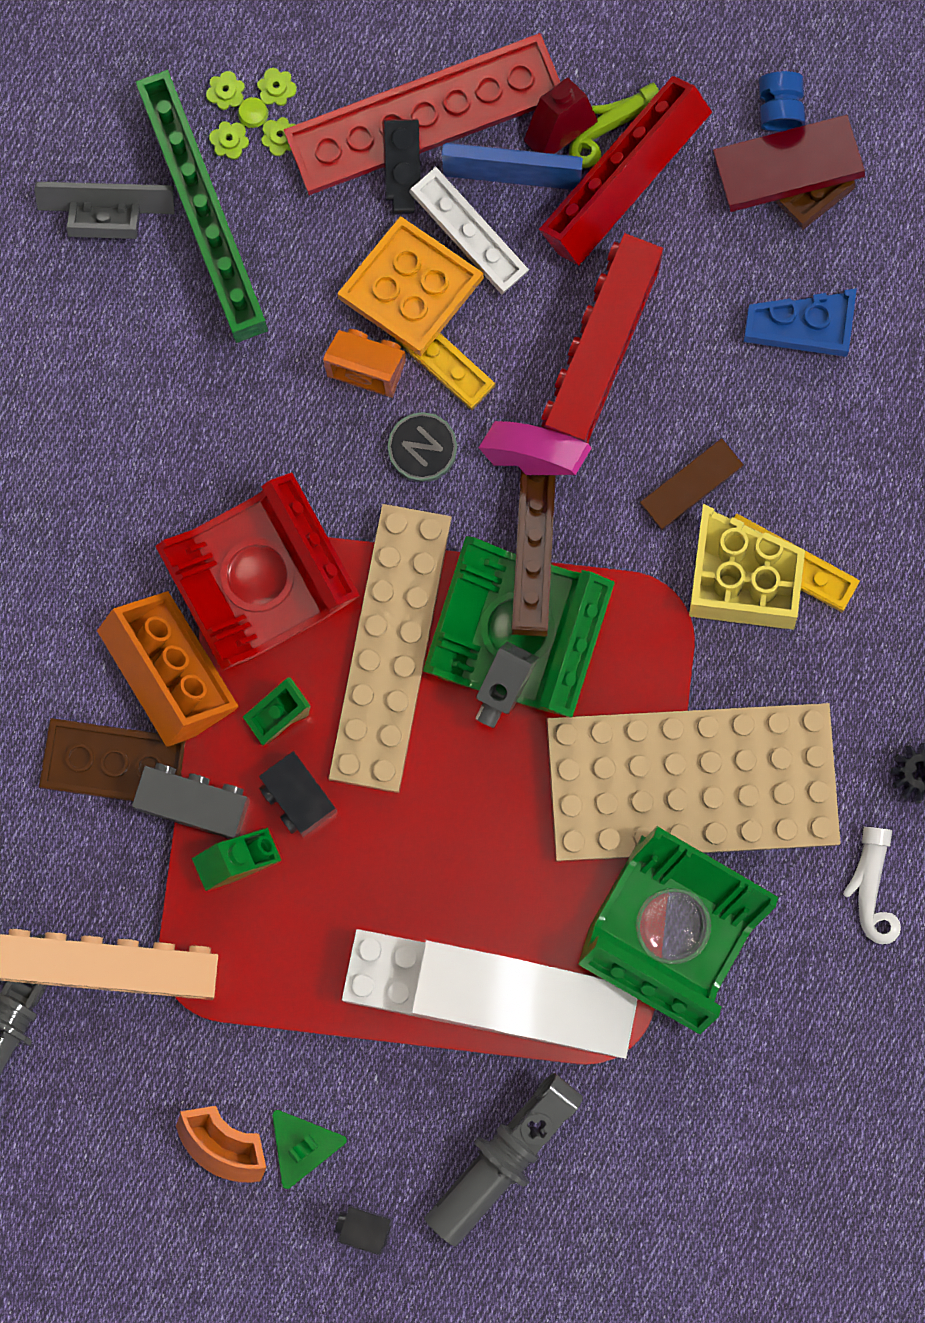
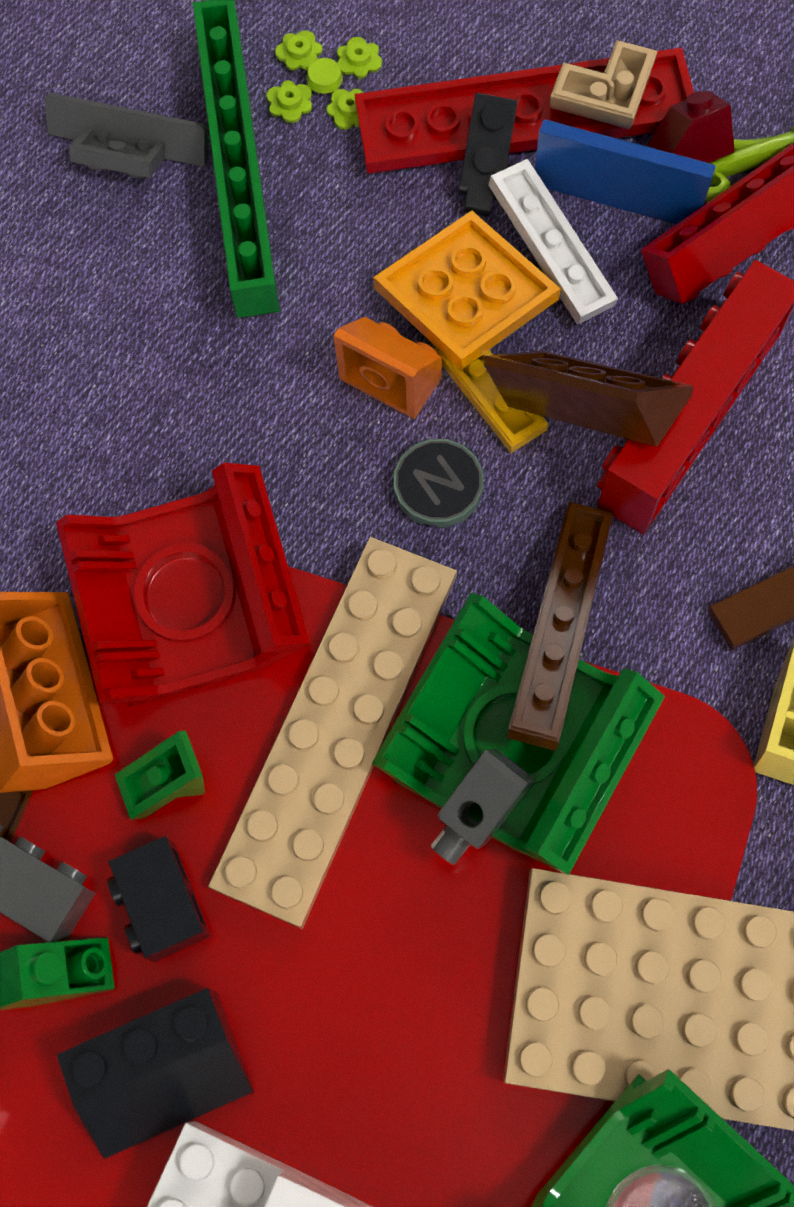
camera: 10 degrees right, 10 degrees down
(326, 905) = (155, 1072): none -> black slope
(492, 97) = (610, 95): none -> tan brick
(520, 362) = (589, 394): none -> reddish brown slope
(533, 449) = (585, 505): dark pink slope -> none

